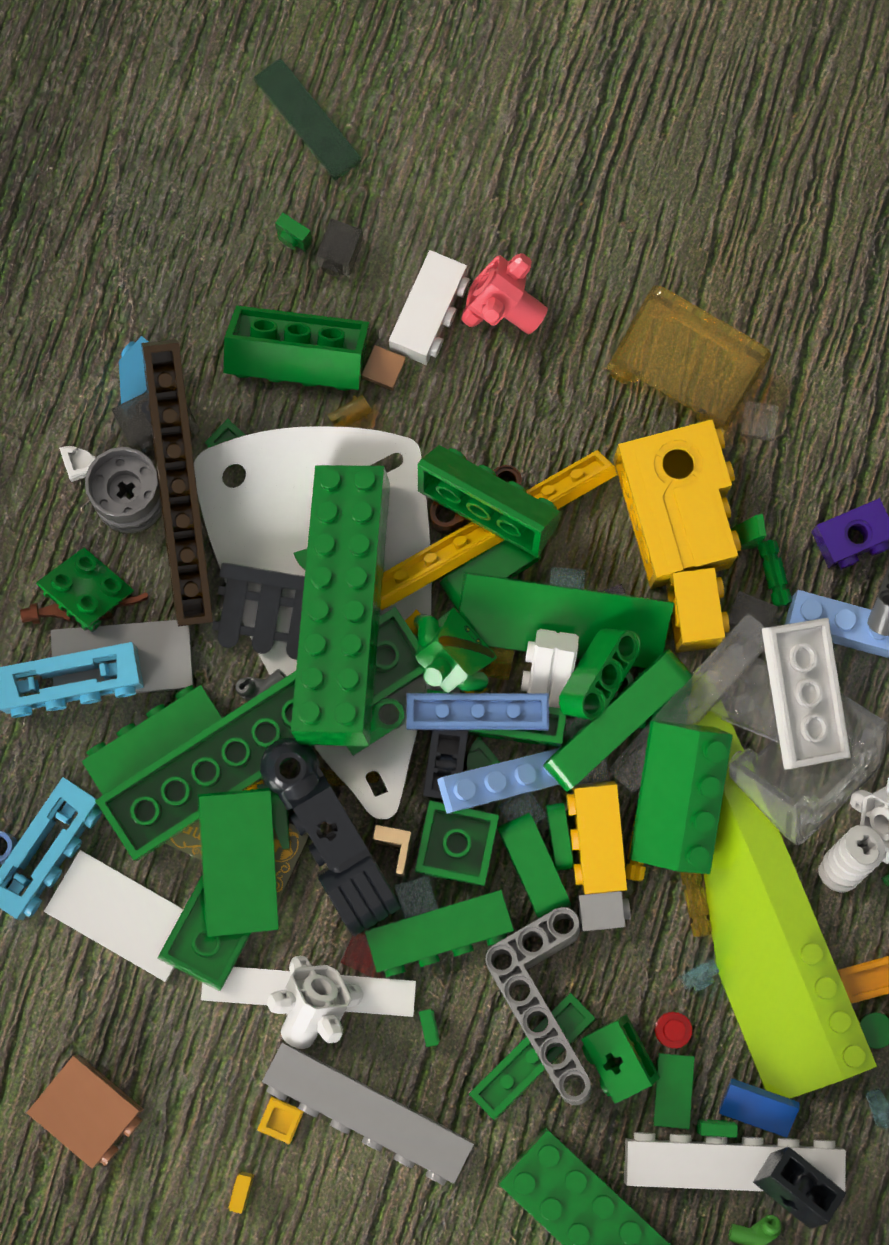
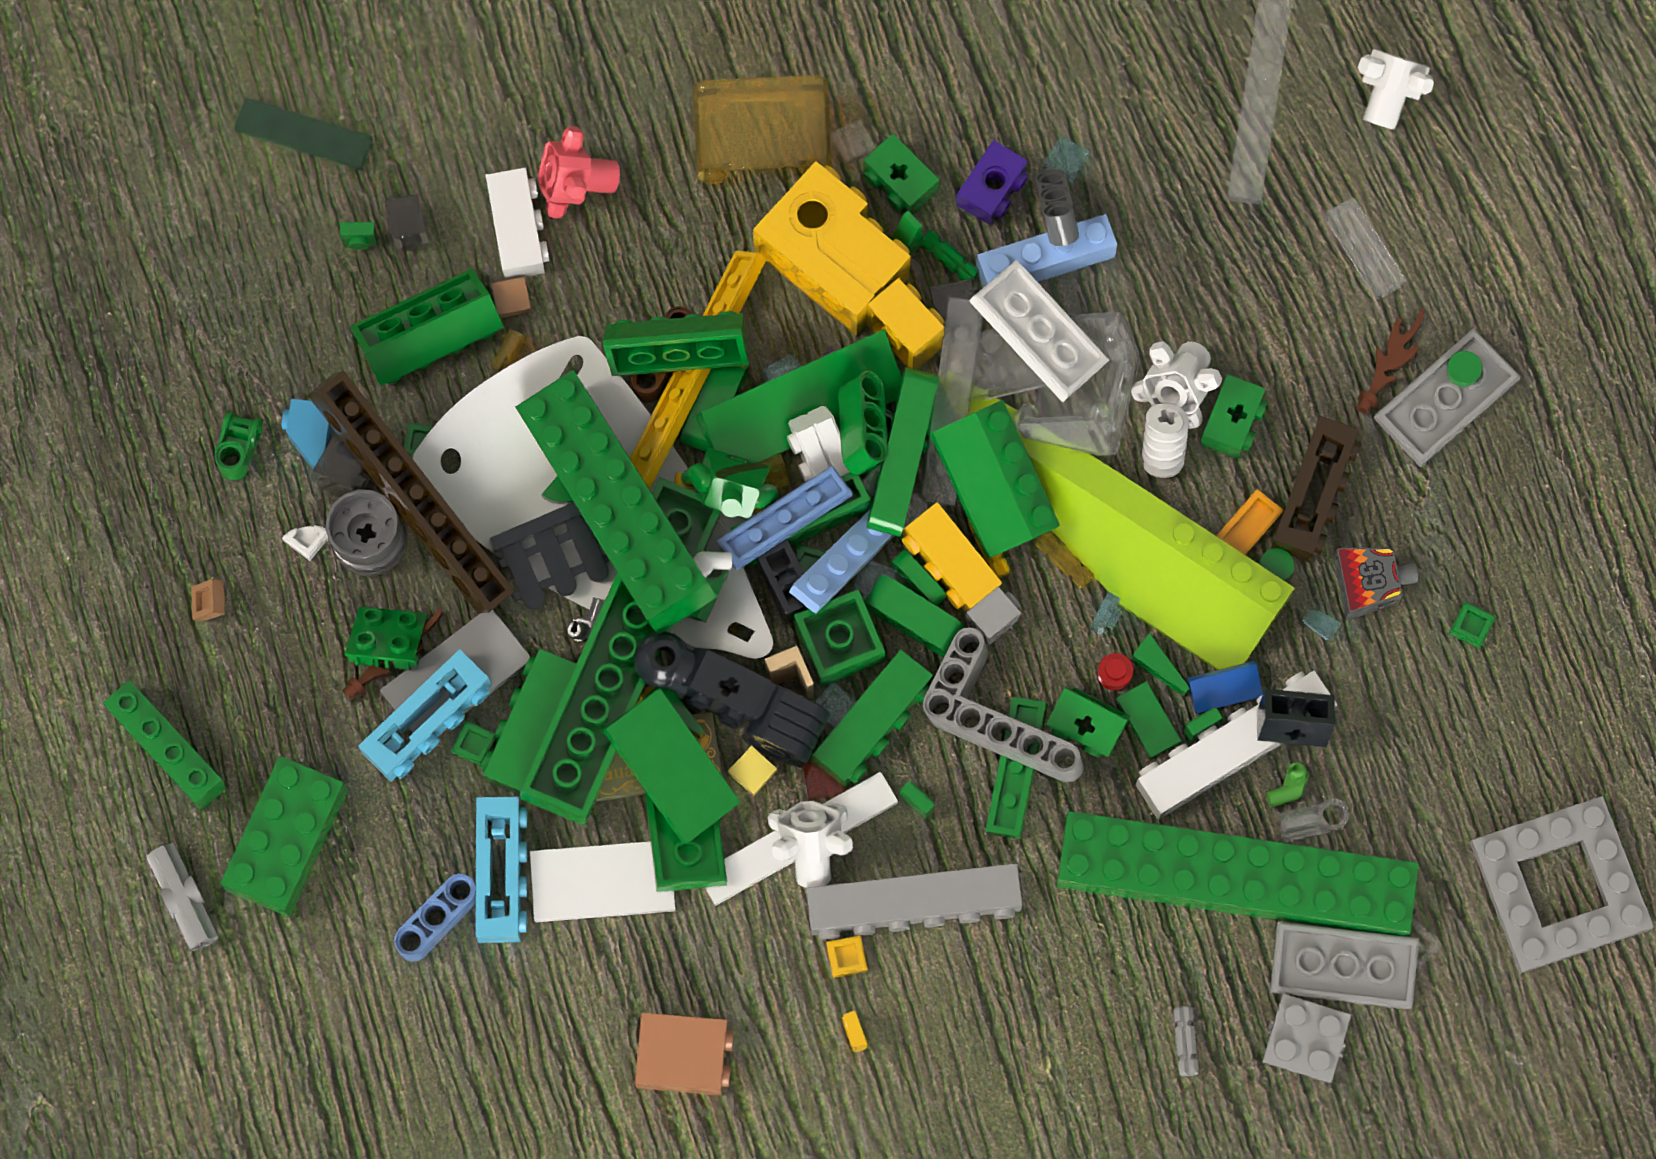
camera: 35 degrees left, 5 degrees down
(78, 343) = (237, 438): none -> green piece
(97, 725) = (473, 743): none -> green tile
(310, 906) = (752, 770): none -> light yellow tile
(386, 708) = (713, 560): none -> white arm
(714, 1044) = (1155, 661): none -> green piece
(785, 459) = (895, 158): none -> green brick

